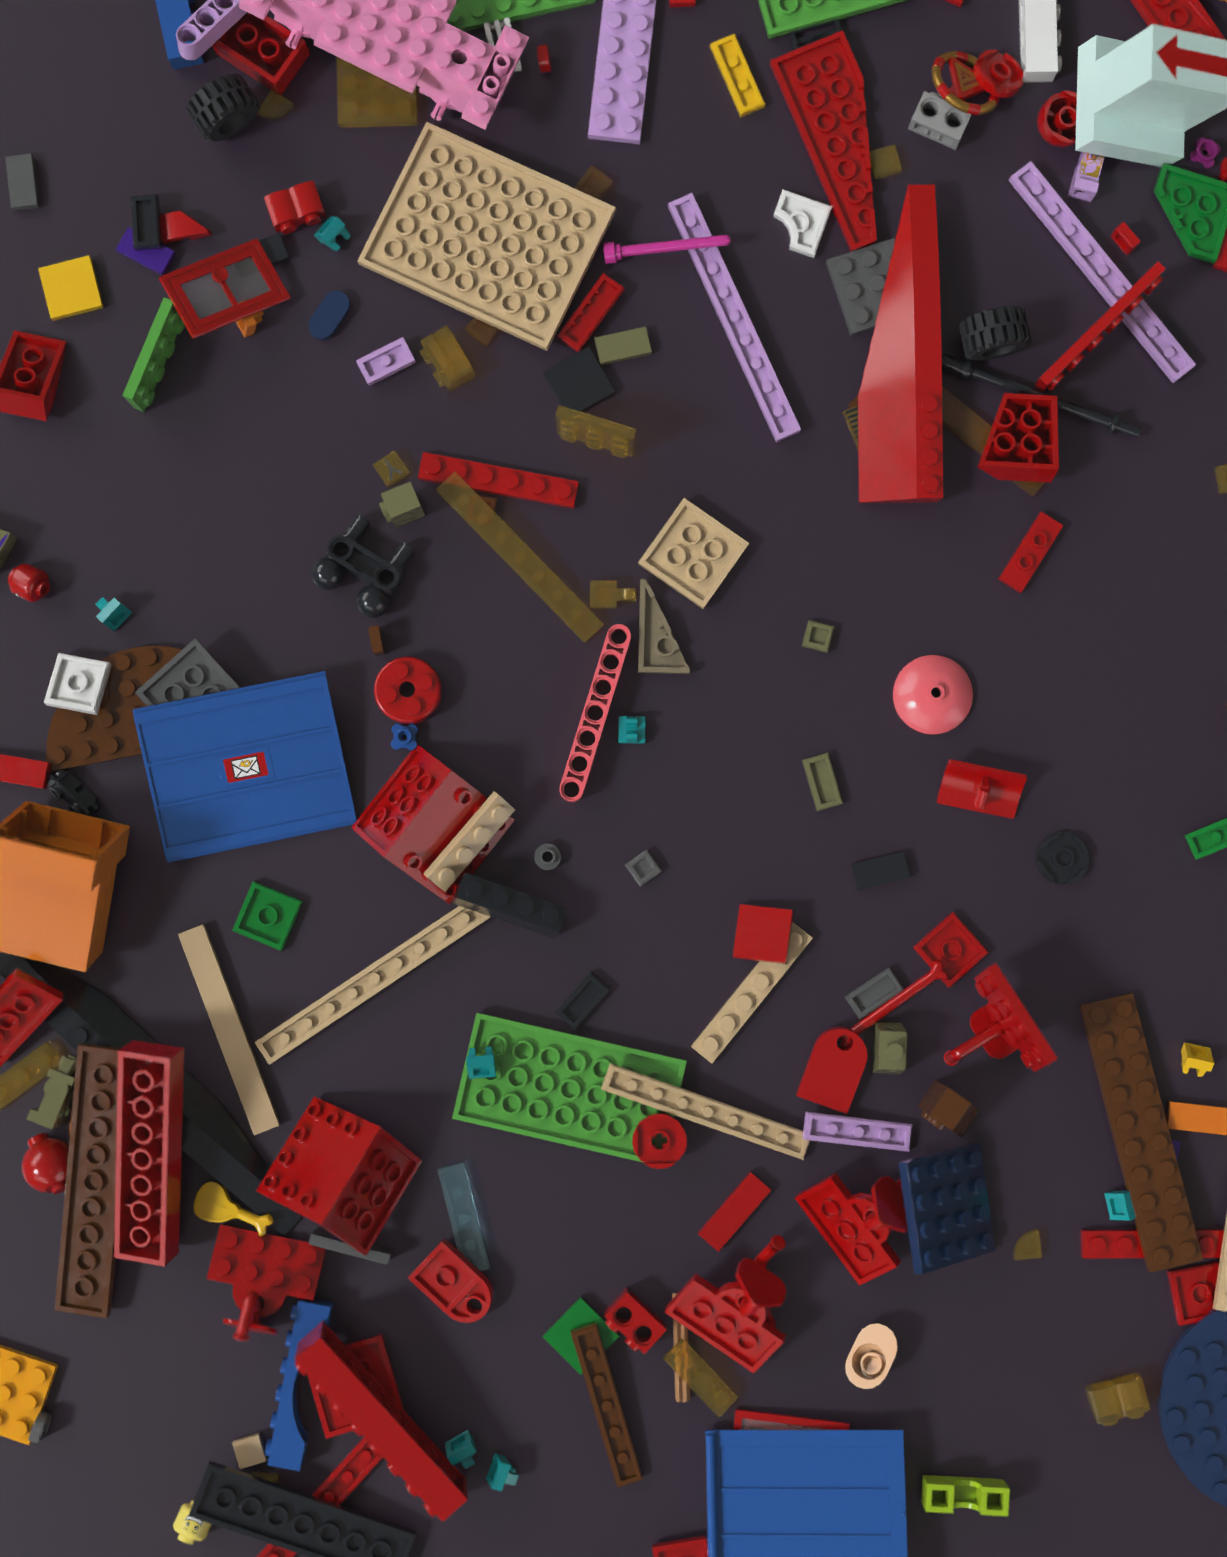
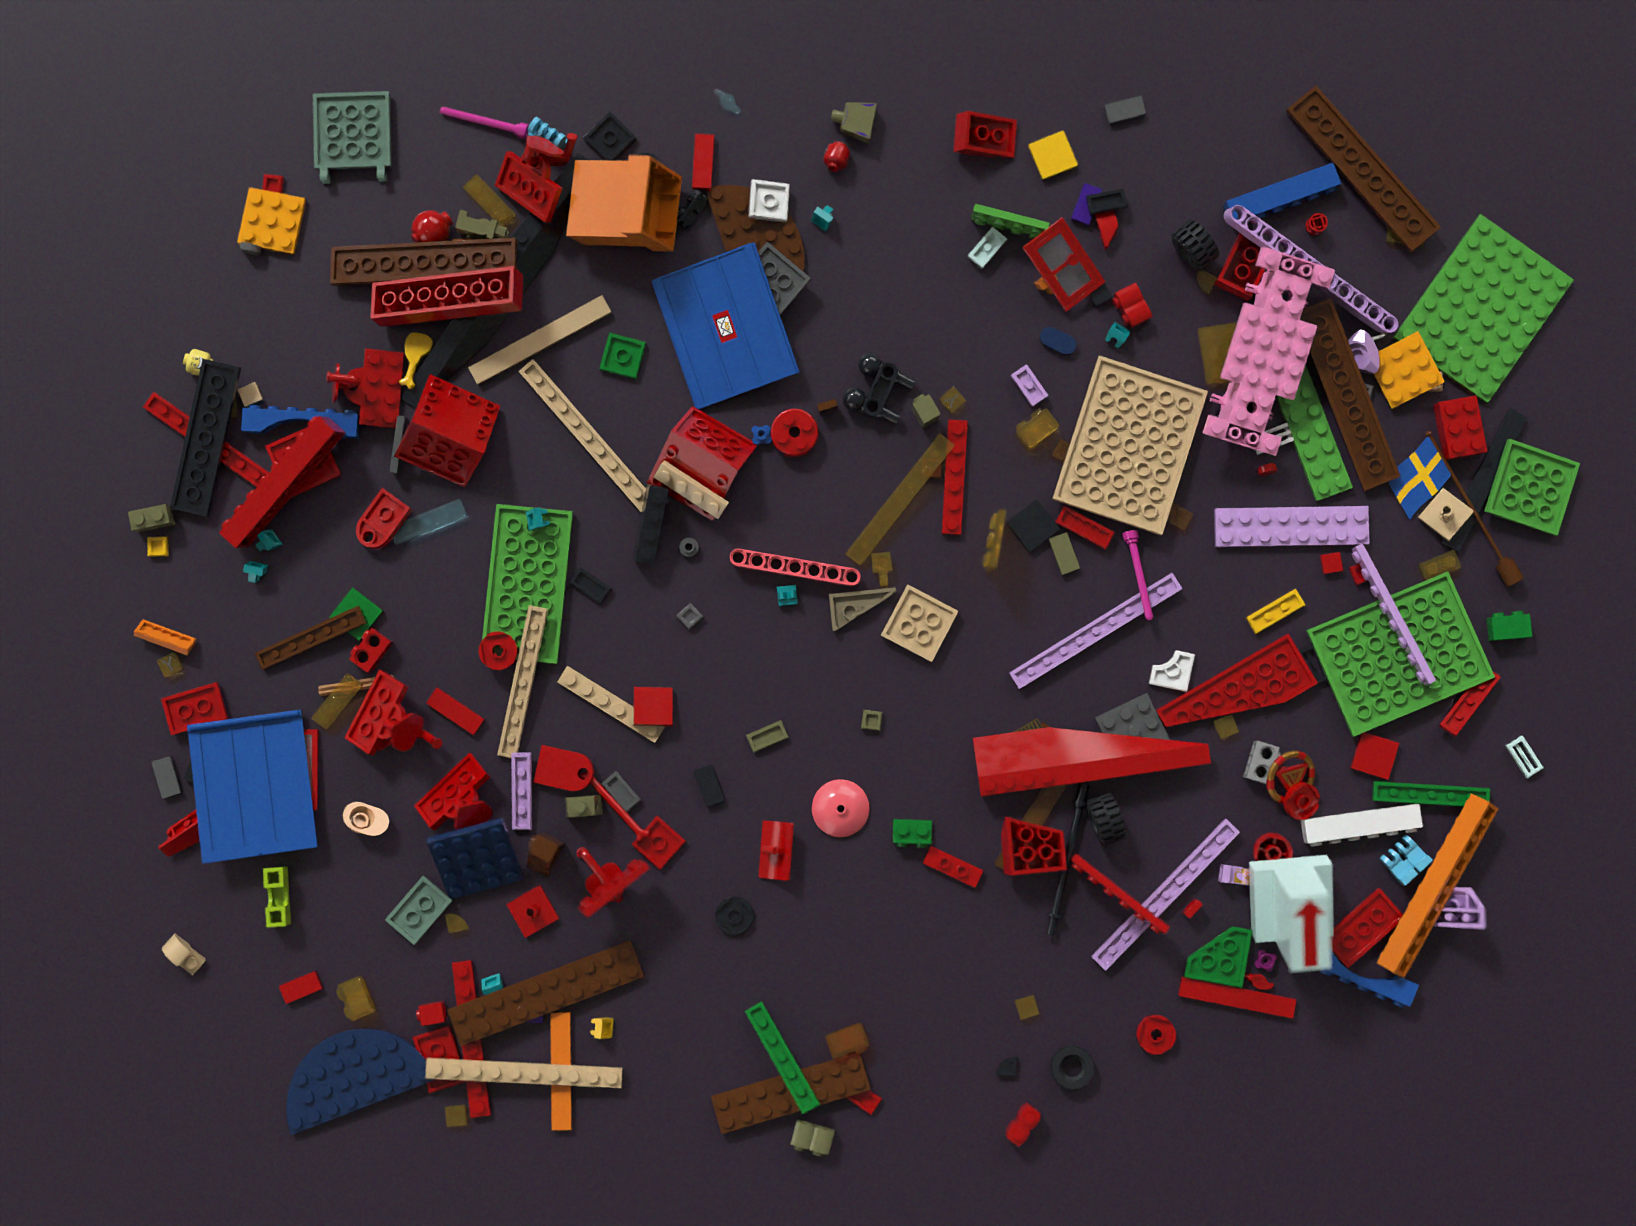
camera: 85 degrees right, 0 degrees up
(186, 393) = (987, 247): none -> light aqua plate
(978, 601) = (912, 831): none -> green bracket
(1005, 1295) = (419, 910): none -> sand green plate
(1024, 1136) = (532, 911): none -> red tile
(1092, 1475) = (300, 987): none -> red tile
(1150, 1294) = (431, 1013): none -> red brick

